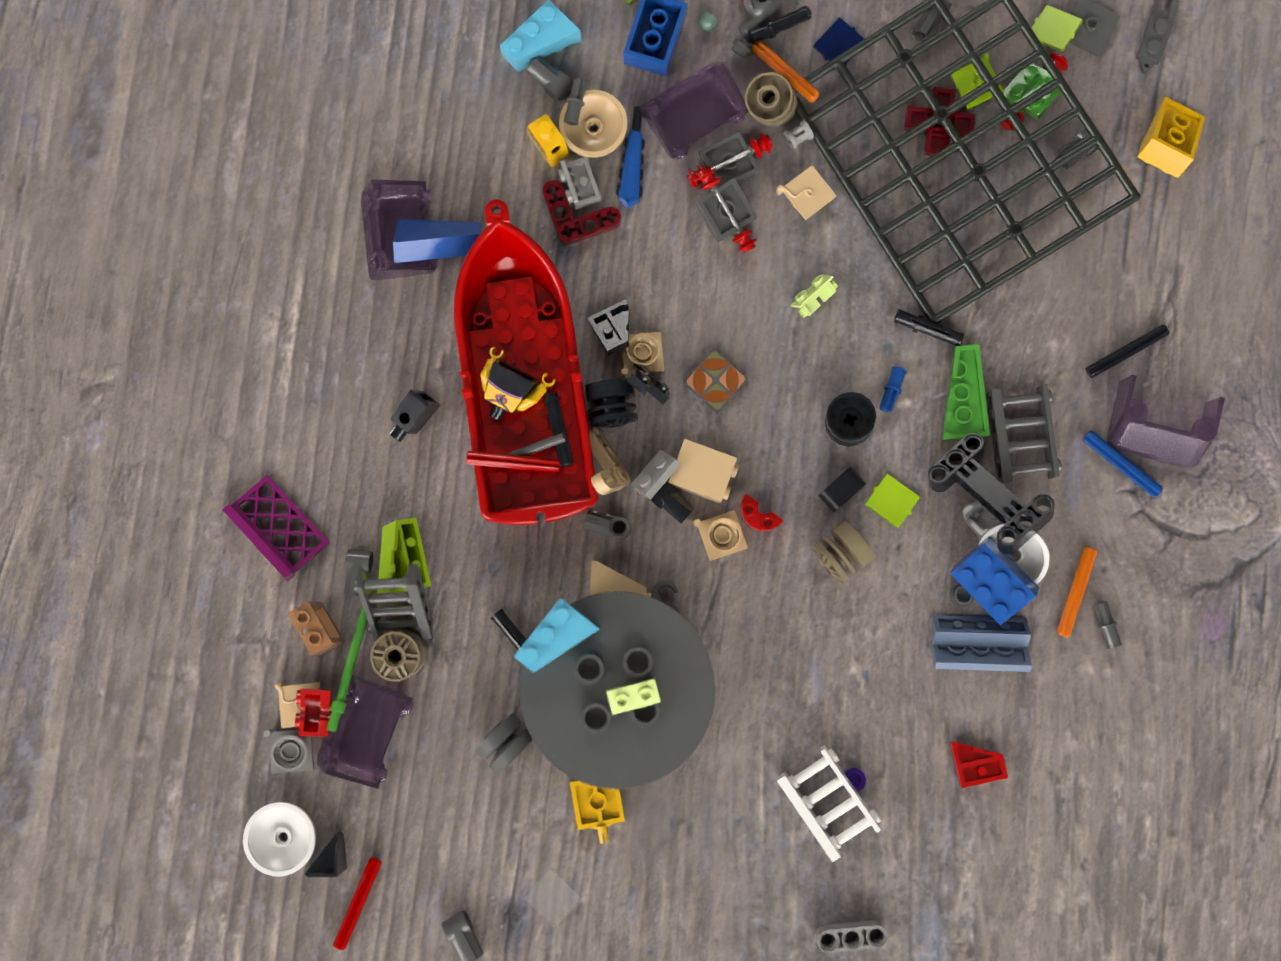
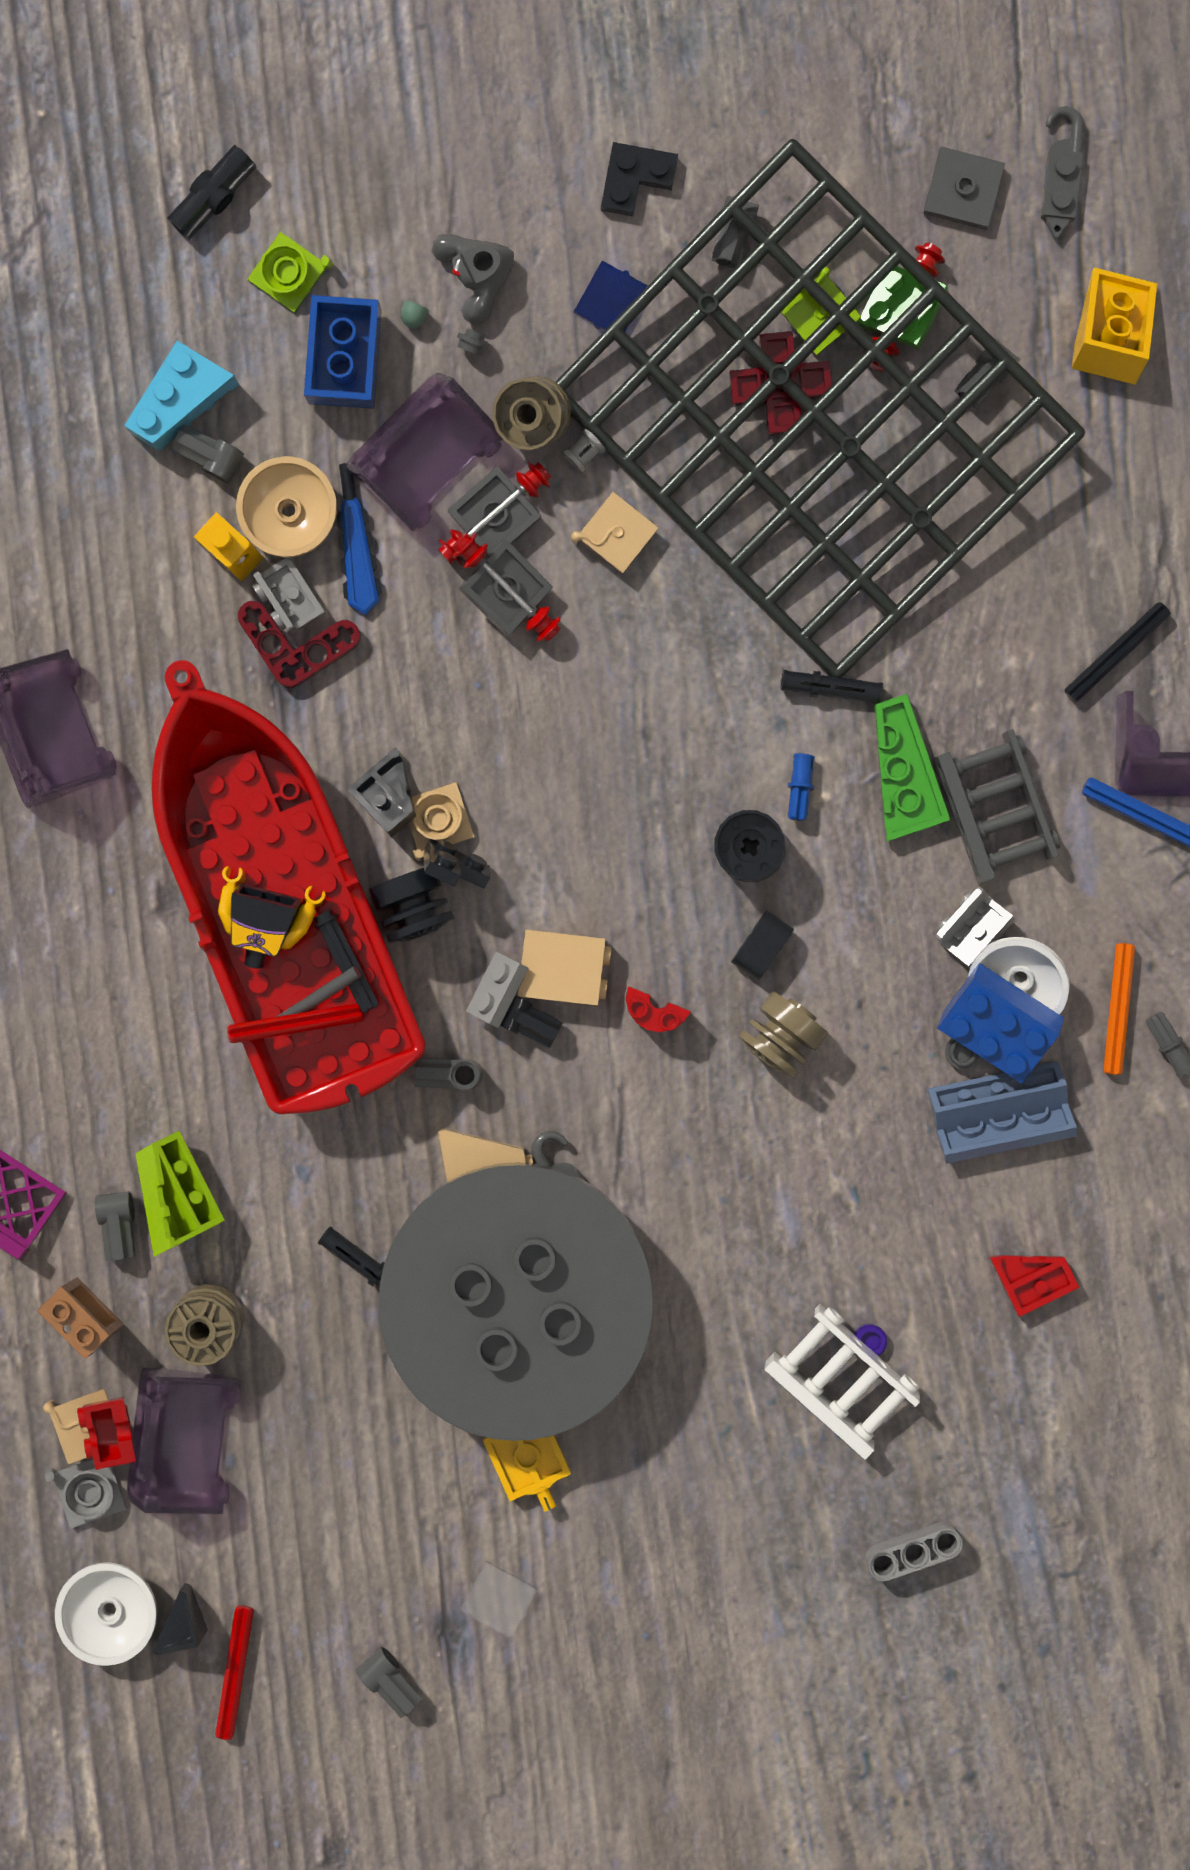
camera: 15 degrees left, 5 degrees up
(338, 706) = (139, 1417): bright green bar -> none
(415, 594) = (203, 1240): dark grey fence -> none
(416, 406) = (142, 975): black torso -> none
(433, 239) = (102, 731): blue slope -> none
(506, 745) = (380, 1410): dark grey wheel -> none
(555, 635) = (413, 1251): medium azure wedge -> none
(575, 102) = (253, 483): dark grey axle -> none
(614, 474) = (442, 1002): tan beam -> none
(633, 696) = (540, 1308): yellowish green hinge -> none
(715, 380) = (550, 834): tile -> none
(721, 535) = (610, 1049): tan hat -> none
(772, 28) = (508, 303): black pin -> none
(786, 71) = (542, 361): orange axle -> none
(821, 287) = (650, 688): yellowish green hinge -> none
(892, 500) = (836, 943): lime piece -> none
(991, 493) = (967, 904): black beam -> none
(1055, 27) = (914, 204): lime piece -> none

